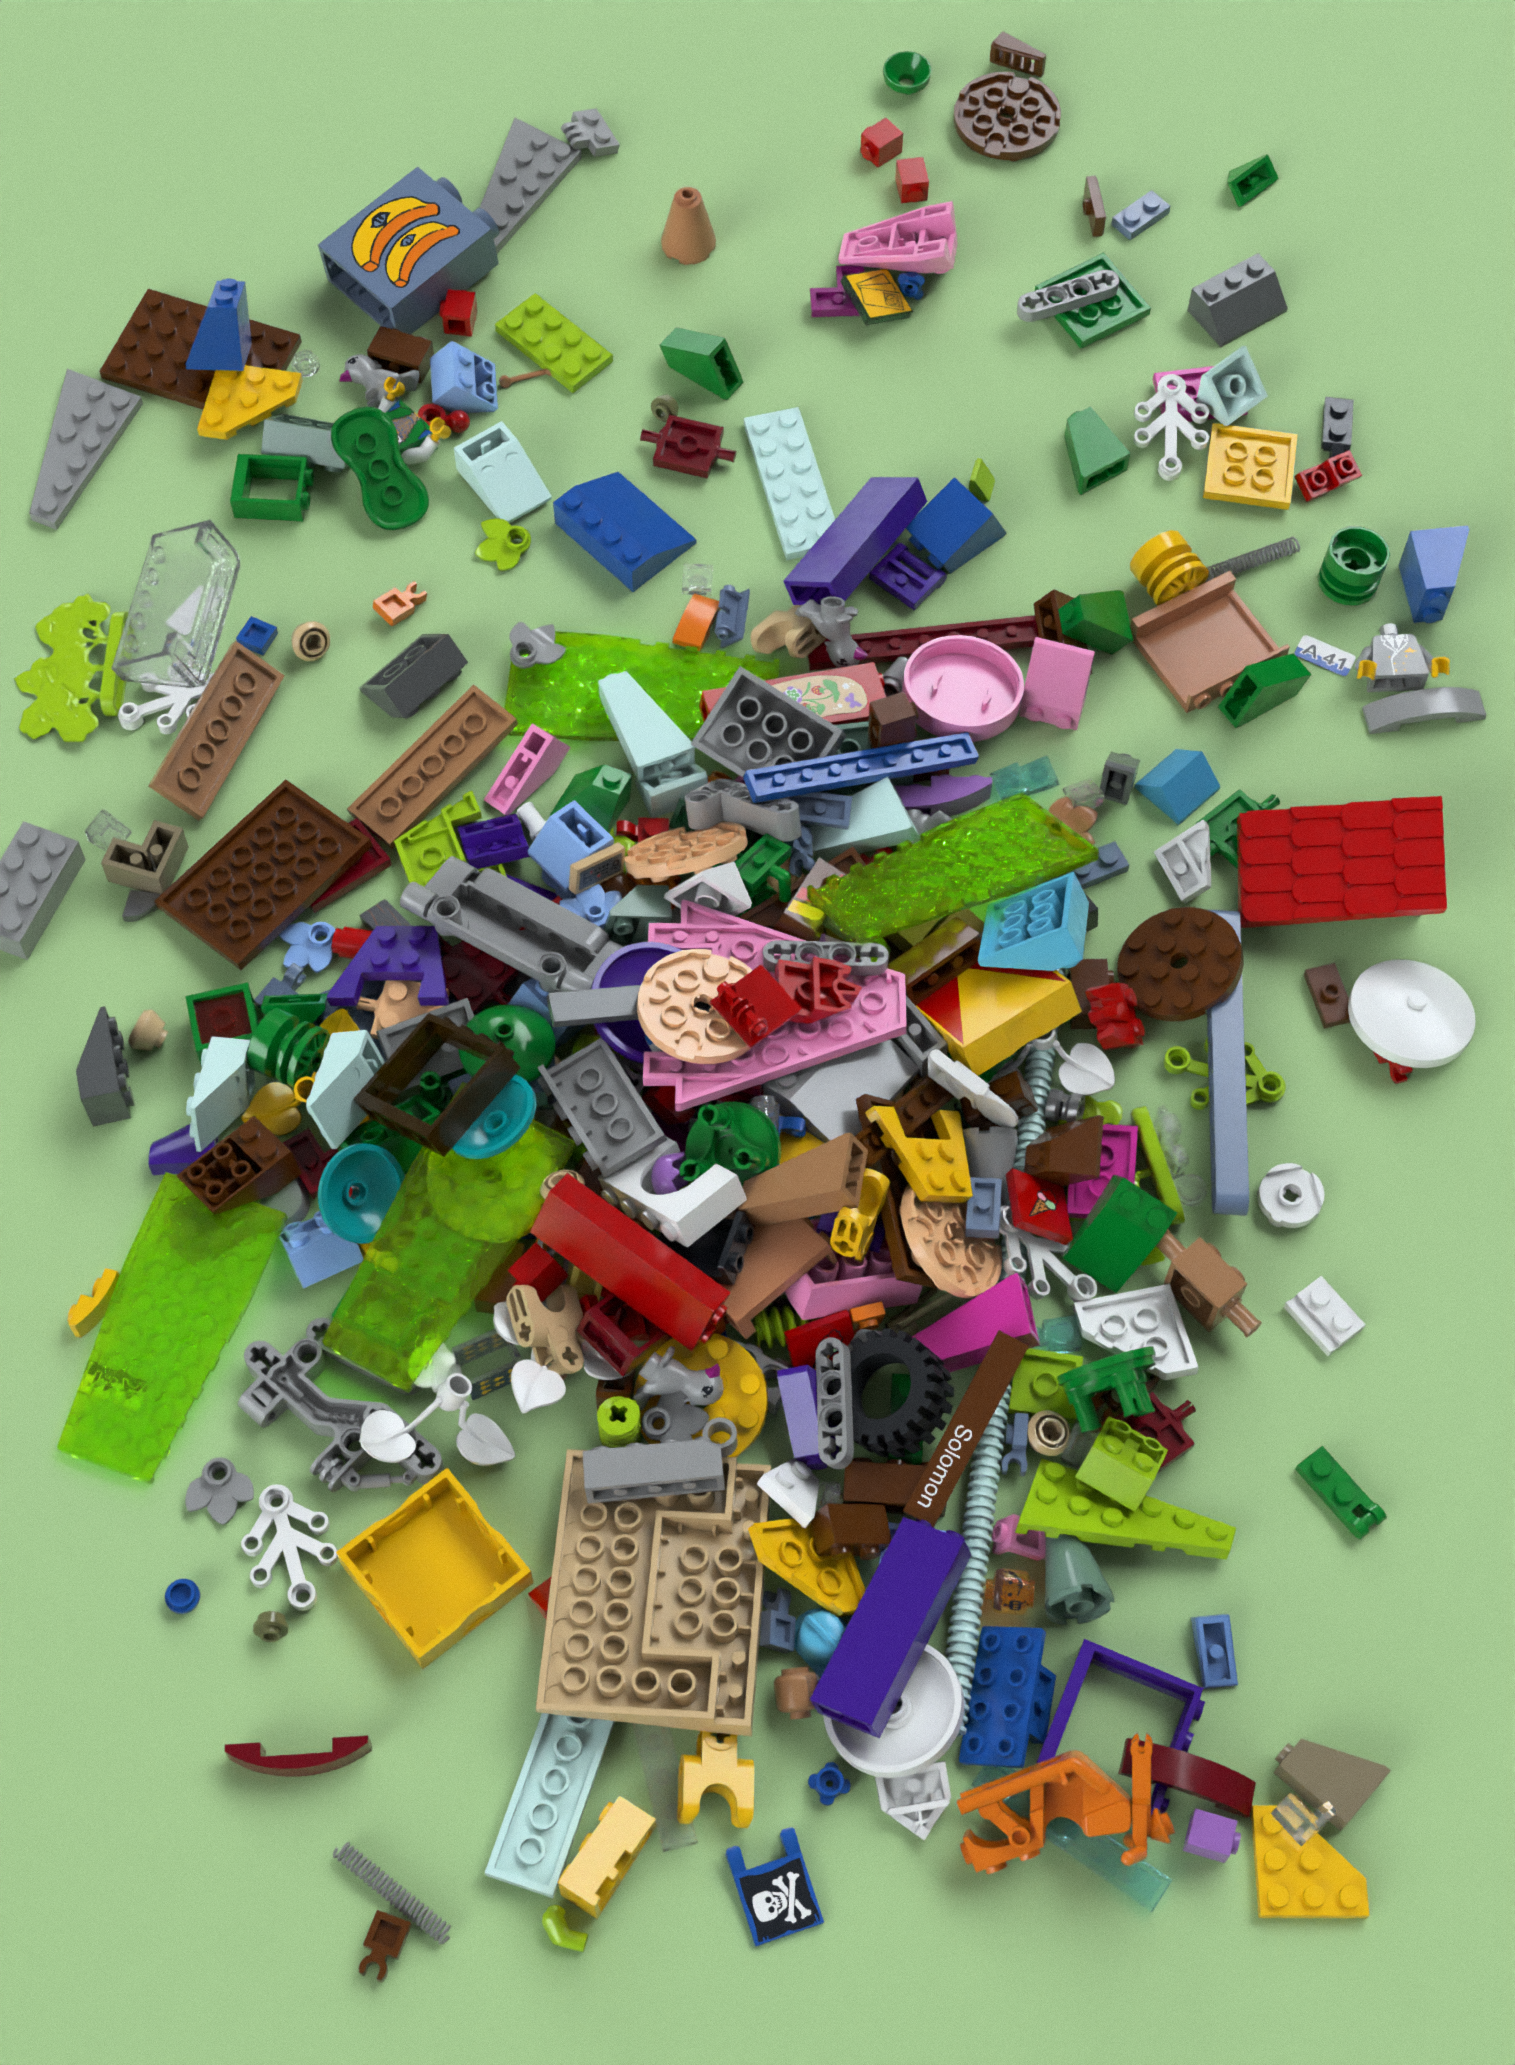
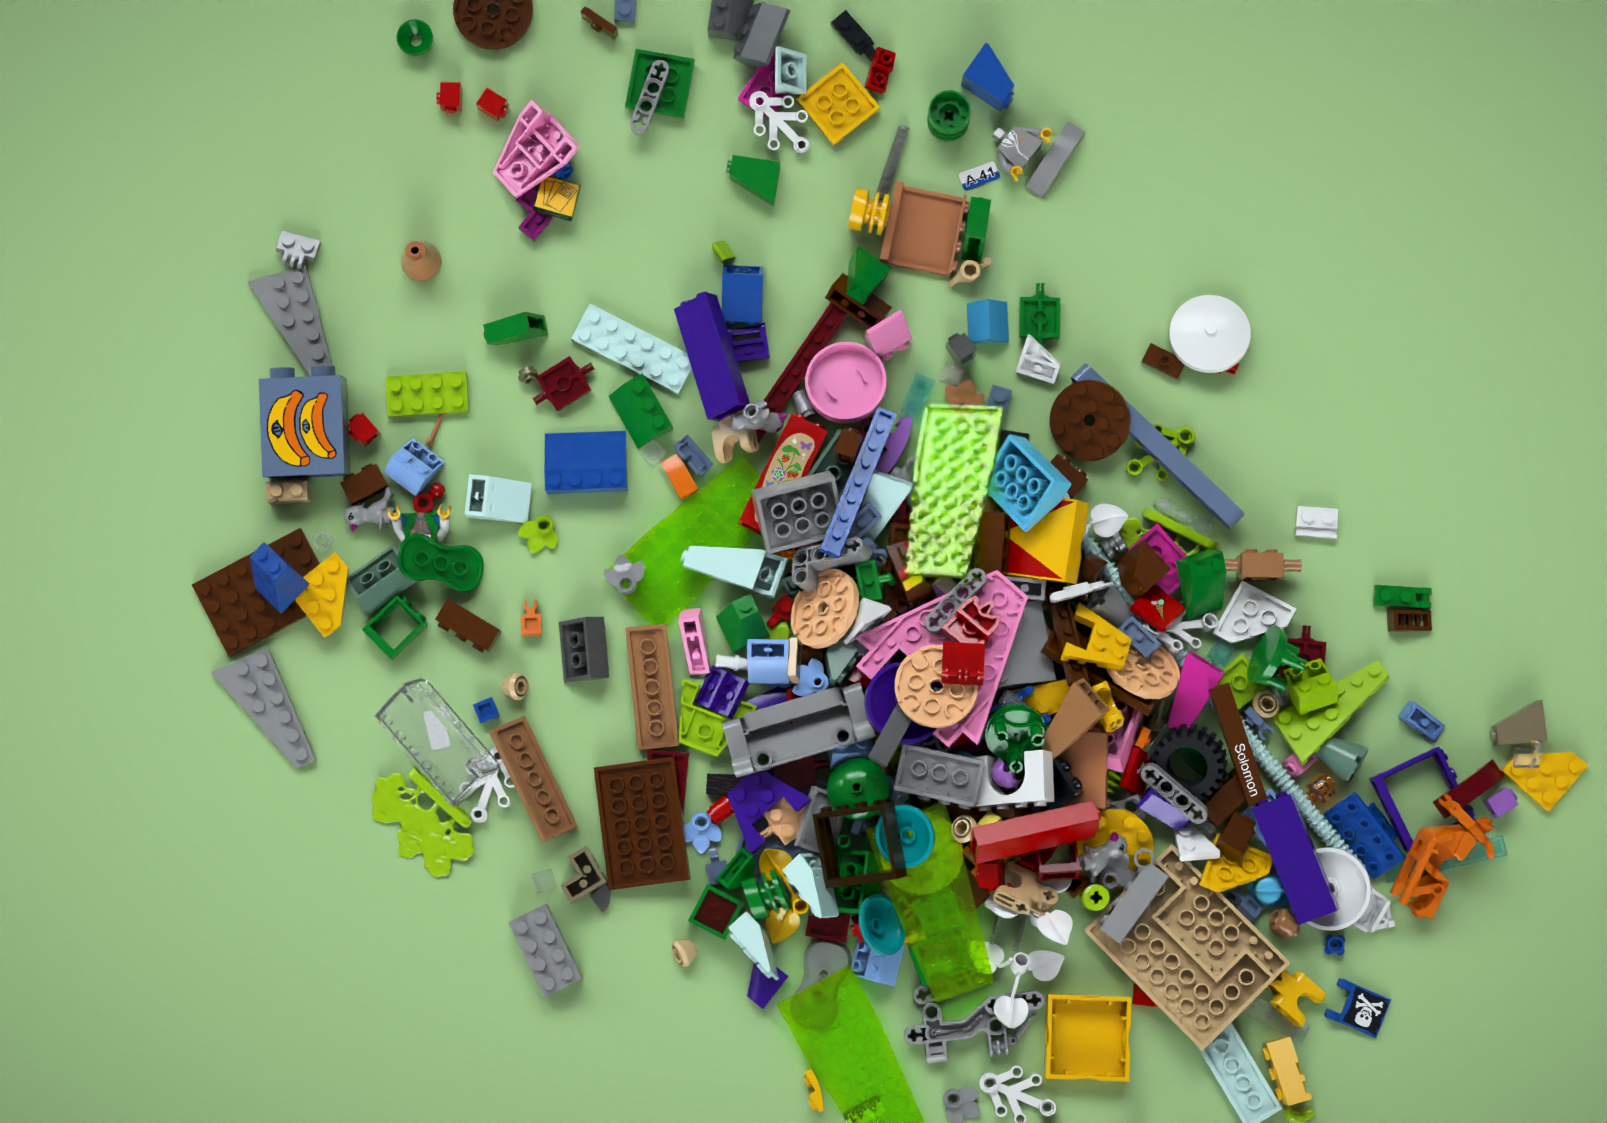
camera: 50 degrees left, 20 degrees up
(104, 1073) = (697, 996): dark grey slope -> none
(241, 1168) = (808, 969): reddish brown slope -> none
(327, 296) = (288, 492): none -> tan brick
(335, 551) = (467, 626): none -> reddish brown brick
(734, 533) = (640, 411): none -> green slope
(1115, 1016) = (1091, 479): red plate -> none
(1212, 719) = (969, 271): none -> tan piece
(1258, 332) = (760, 34): none -> dark grey slope
(1300, 1182) = (1258, 477): white plate -> none
(1313, 1534) = (1395, 620): none -> reddish brown slope
(1341, 862) = (1111, 295): red piece -> none

